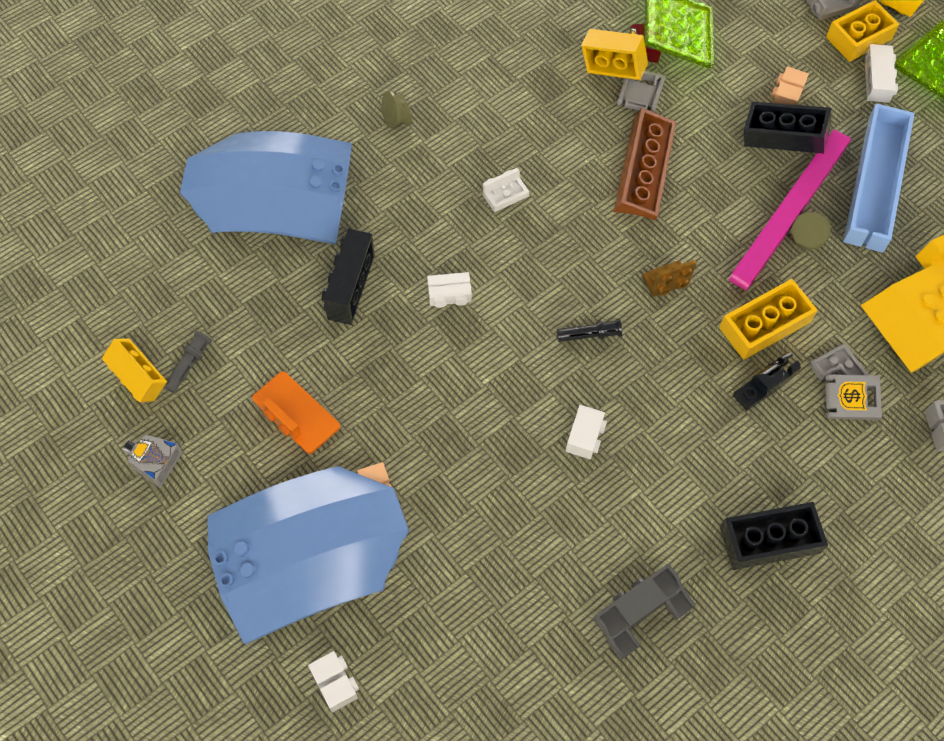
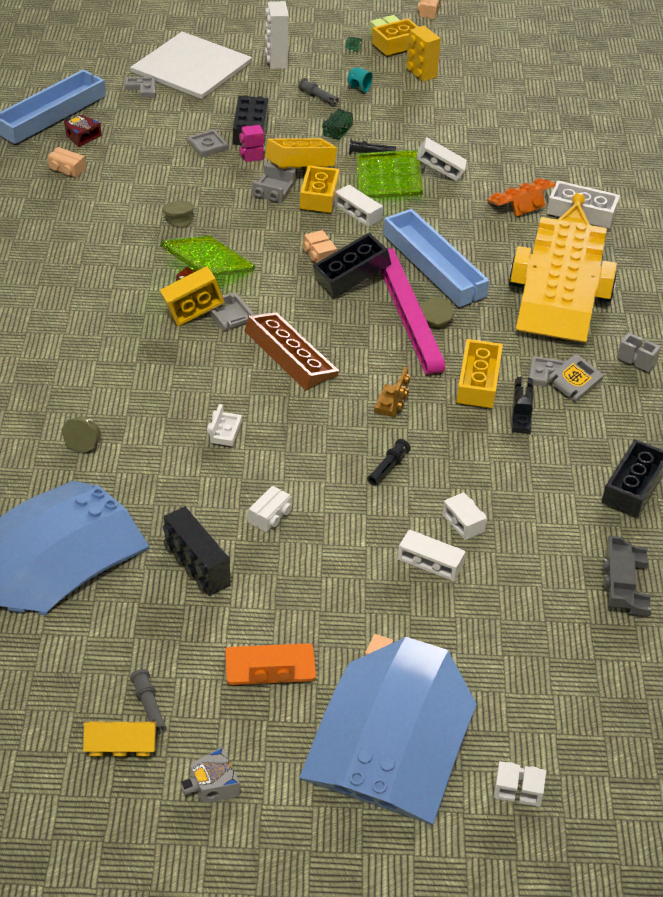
camera: 50 degrees left, 20 degrees down
(516, 440) = (431, 555): none -> white brick

